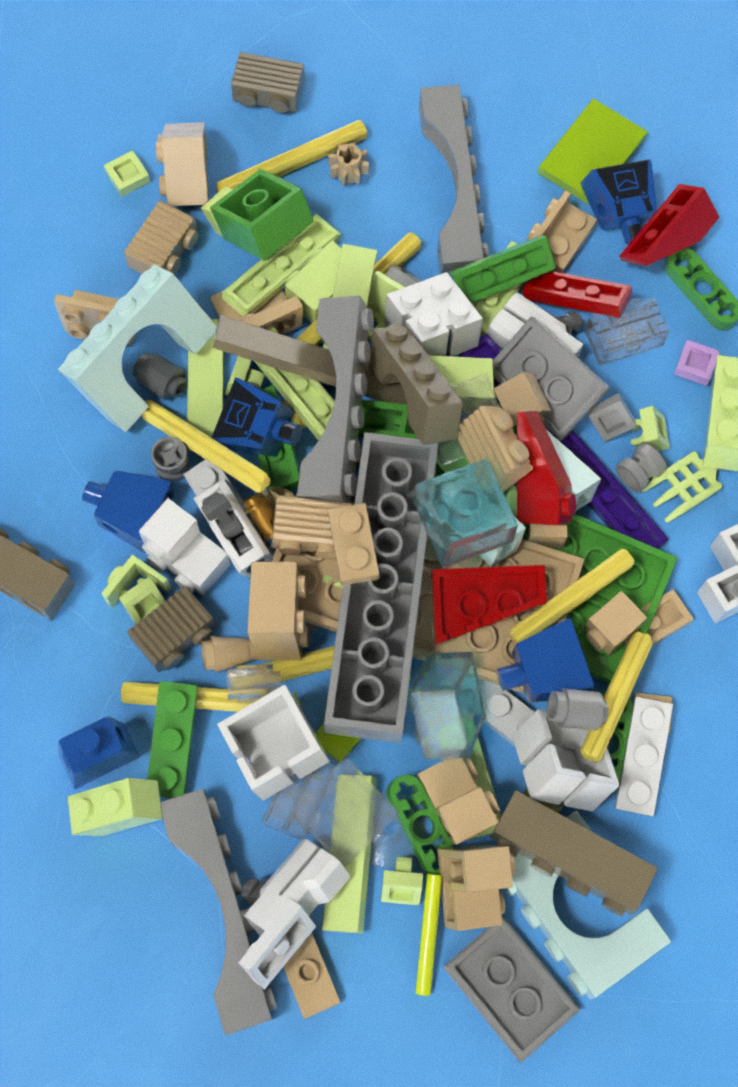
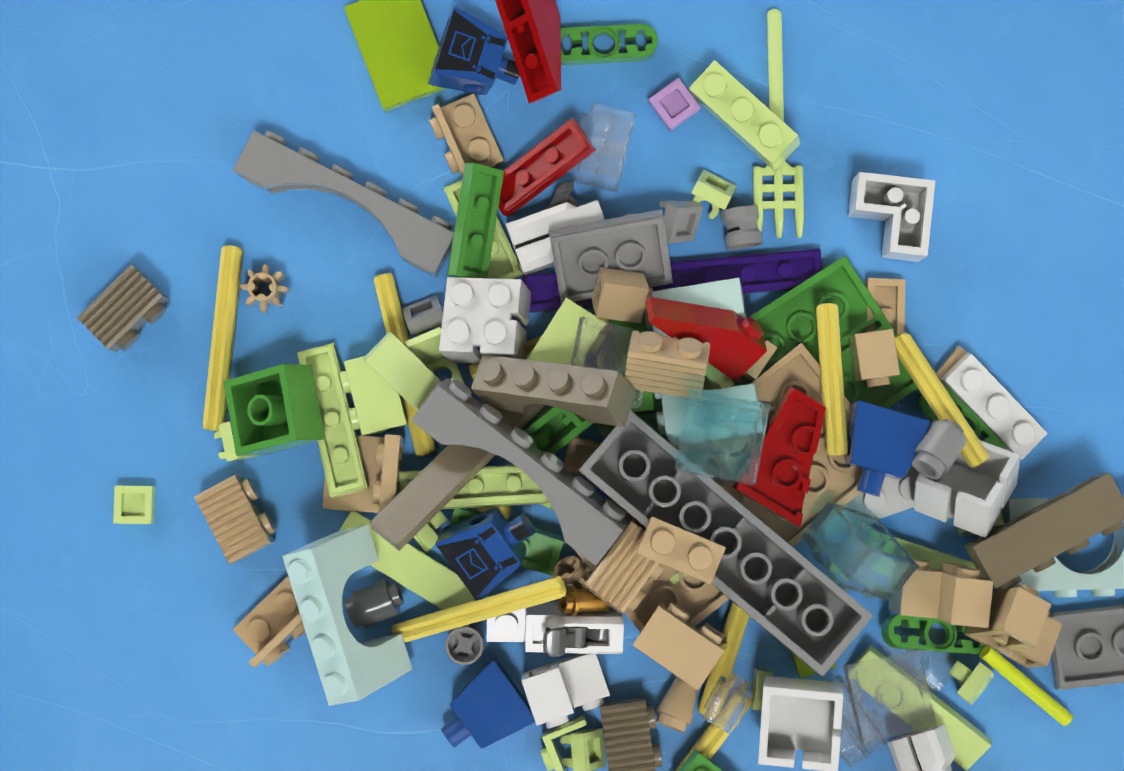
camera: 55 degrees left, 15 degrees up
(184, 156) = (165, 447): tan brick -> none

